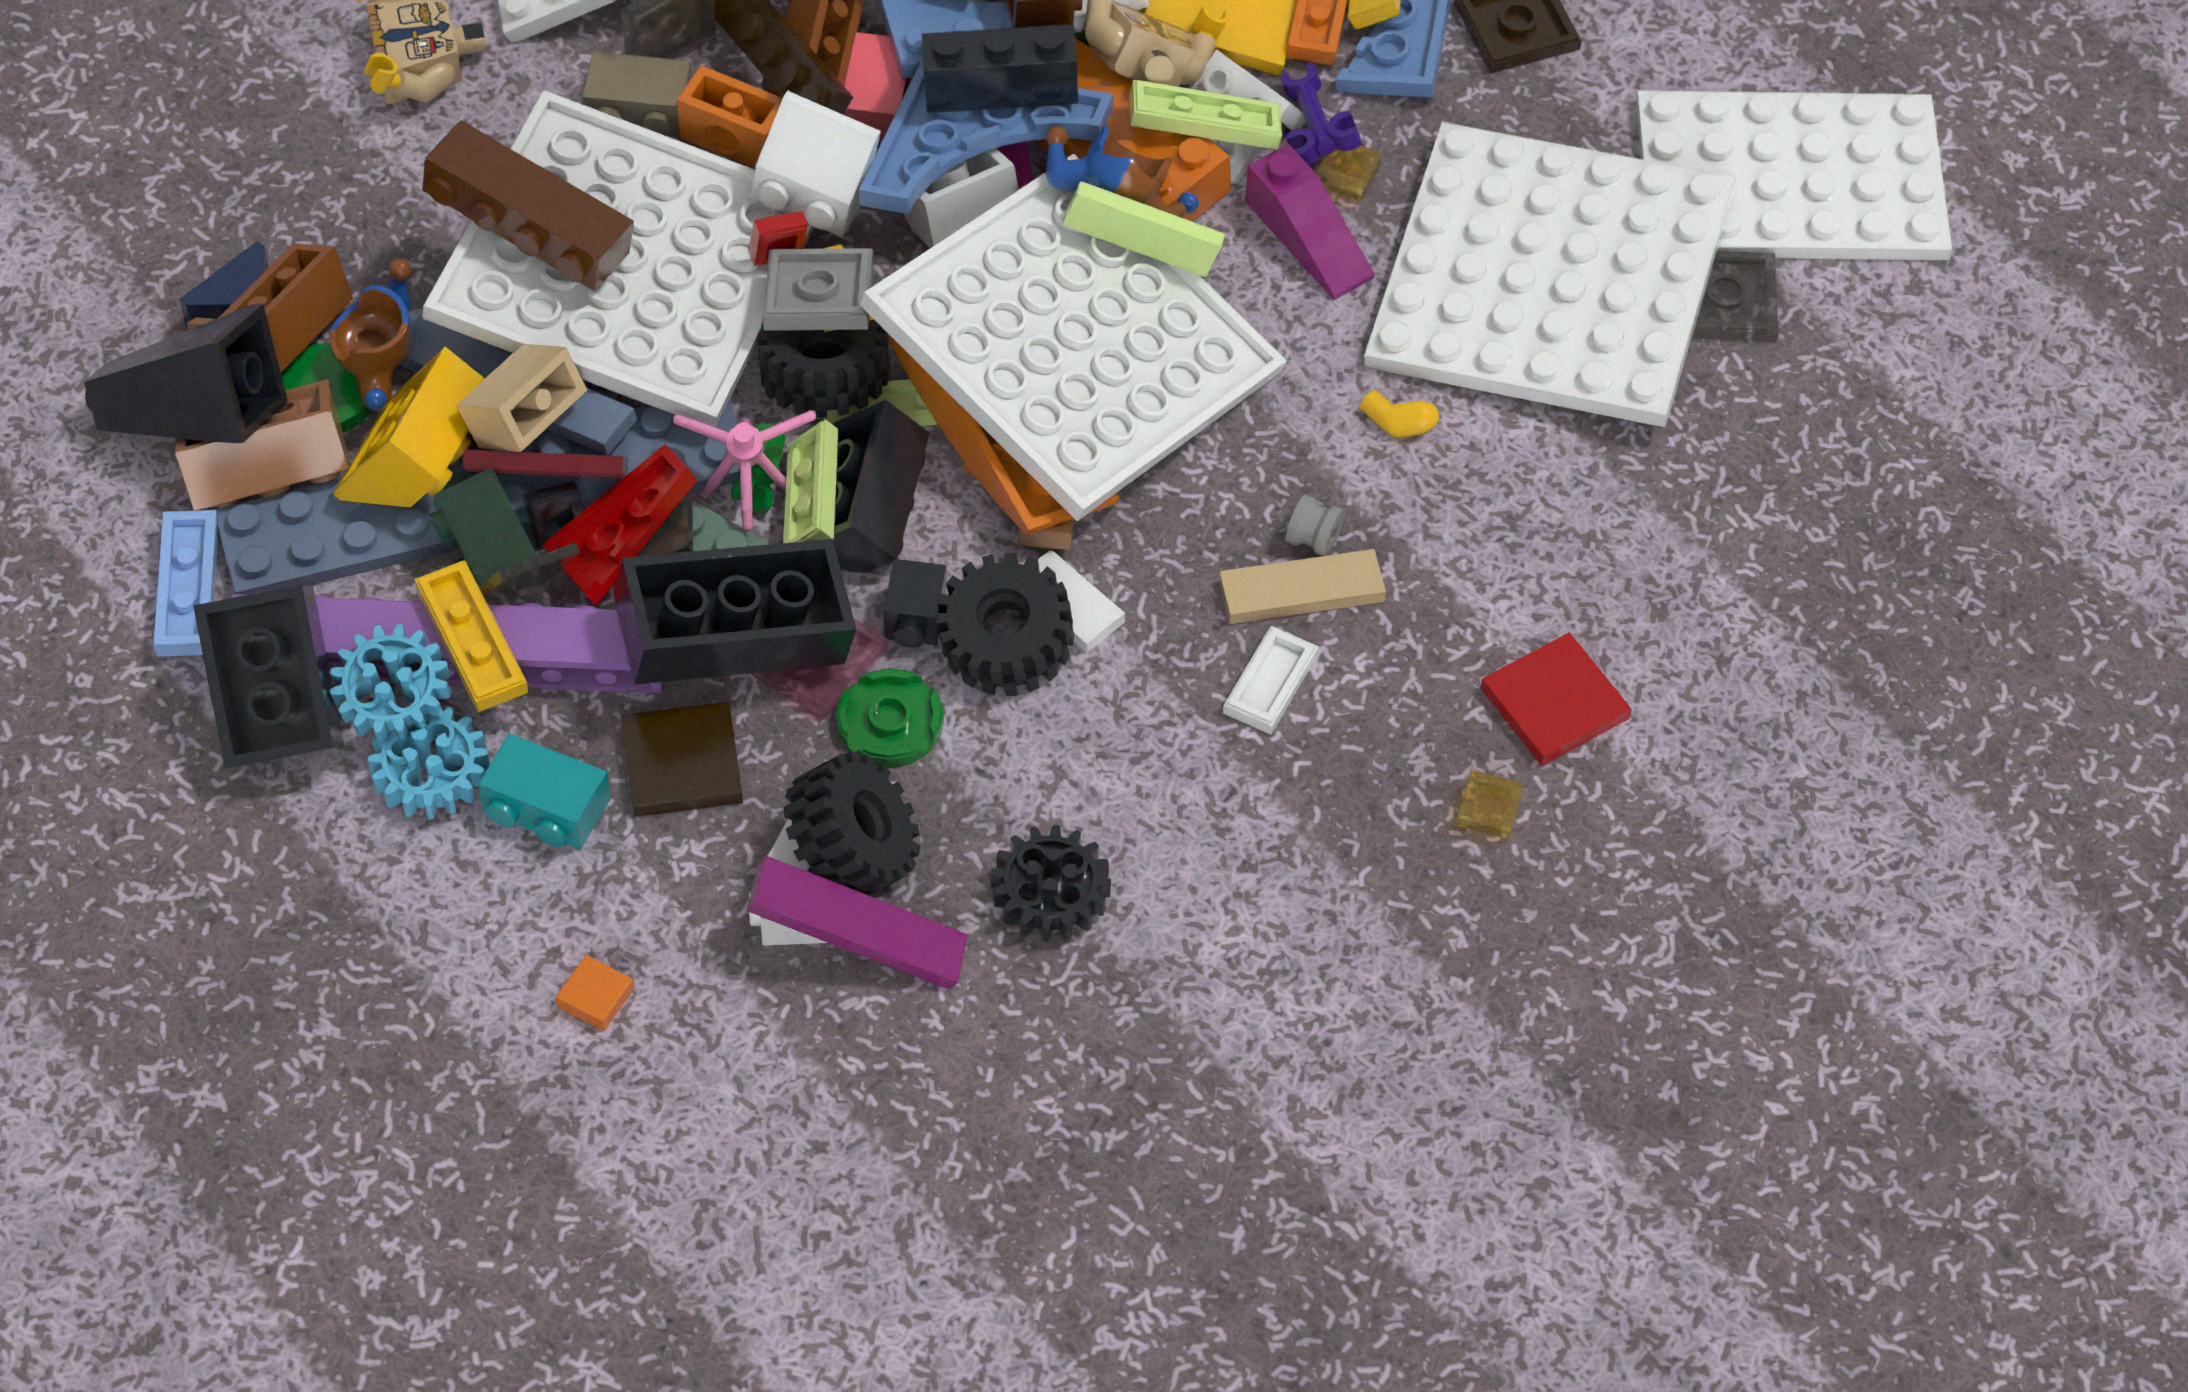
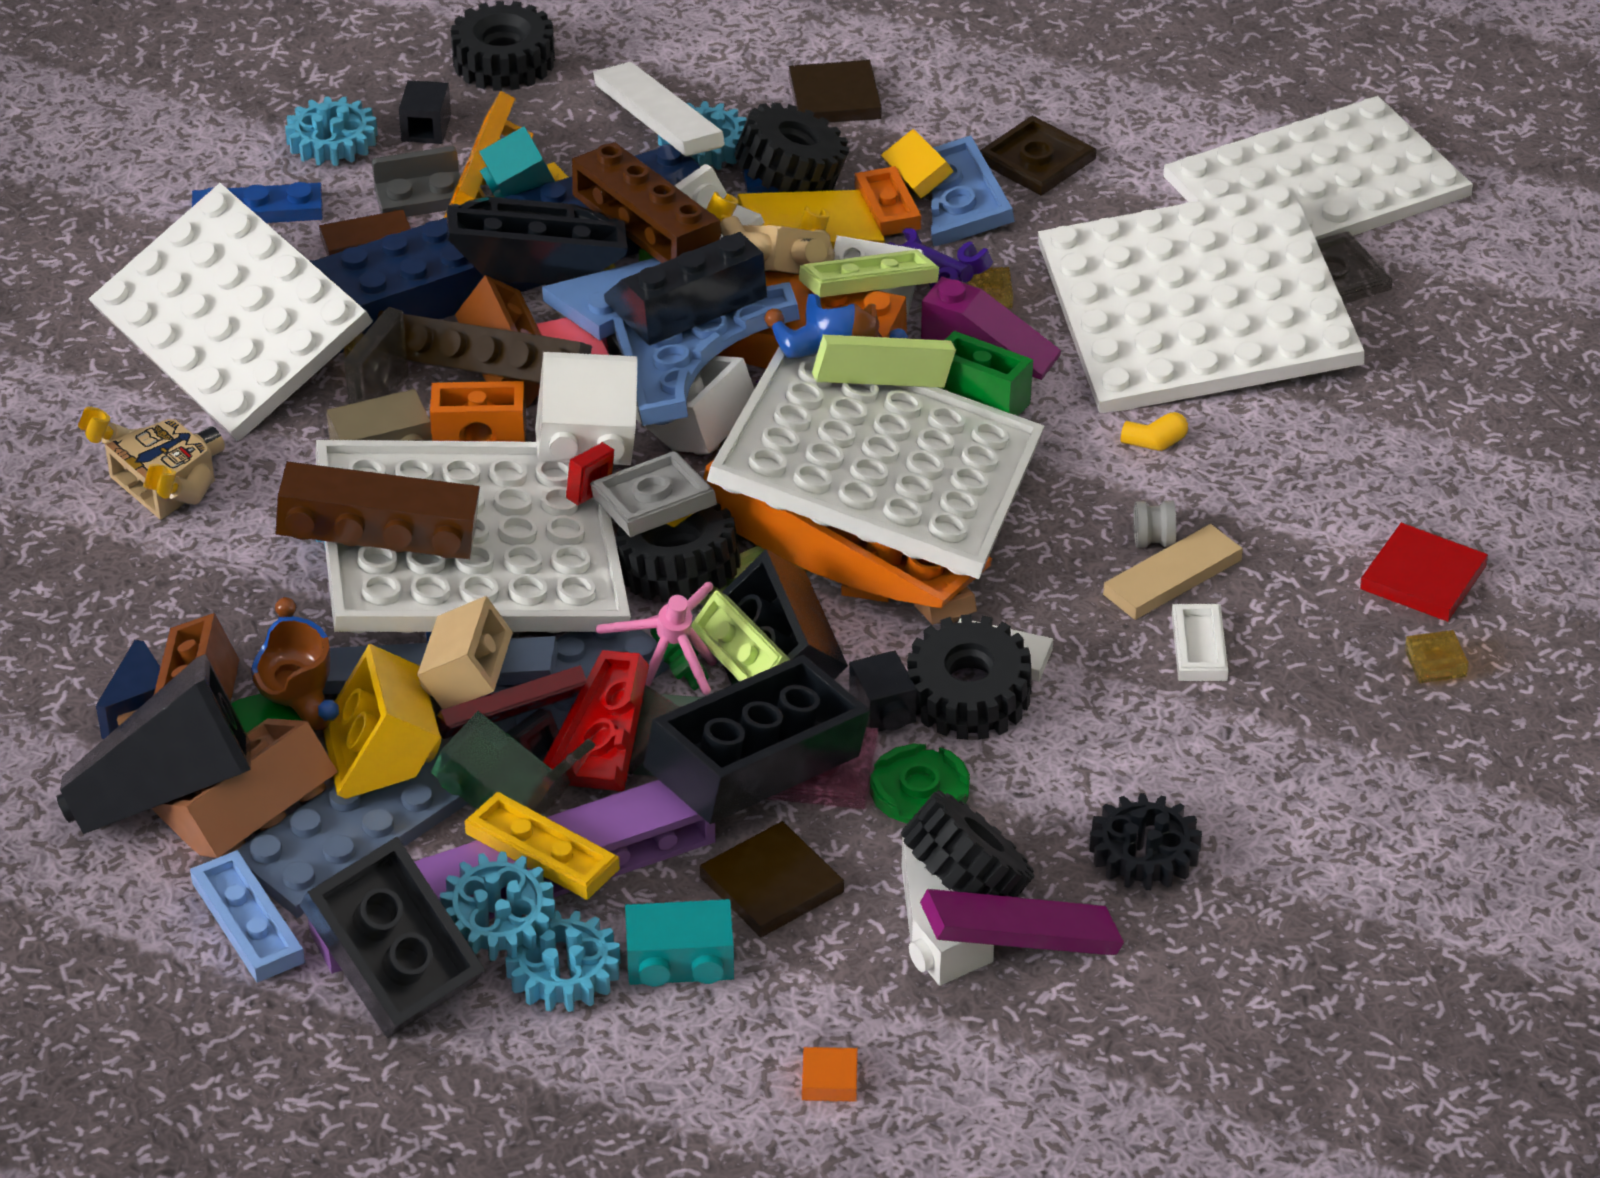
camera: 25 degrees left, 15 degrees down
(1257, 280) = (989, 374): none -> green brick

